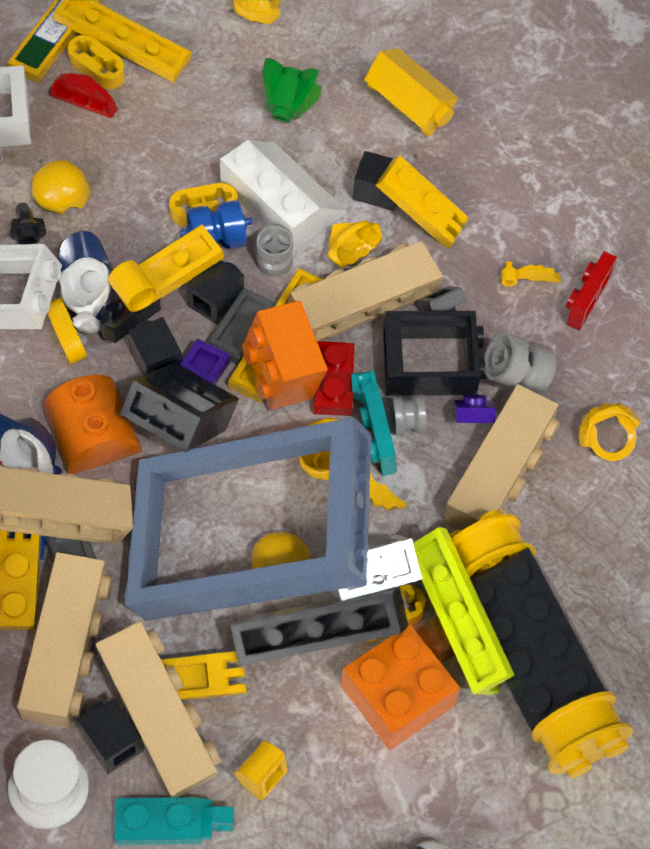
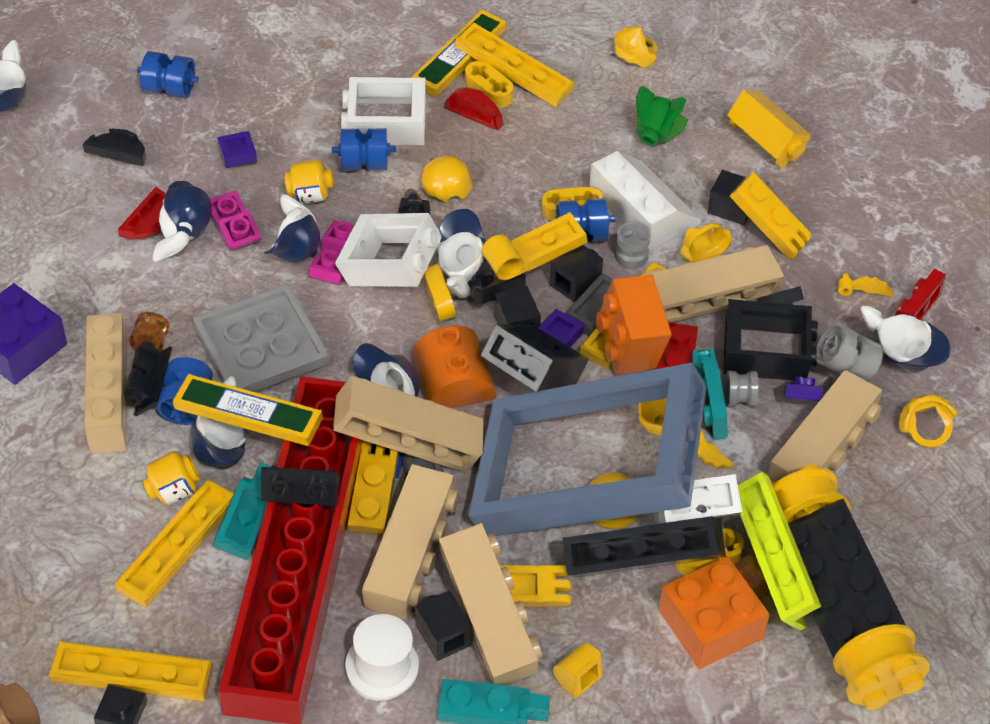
camera: 10 degrees right, 10 degrees down
(582, 340) = (907, 340): none -> white hair

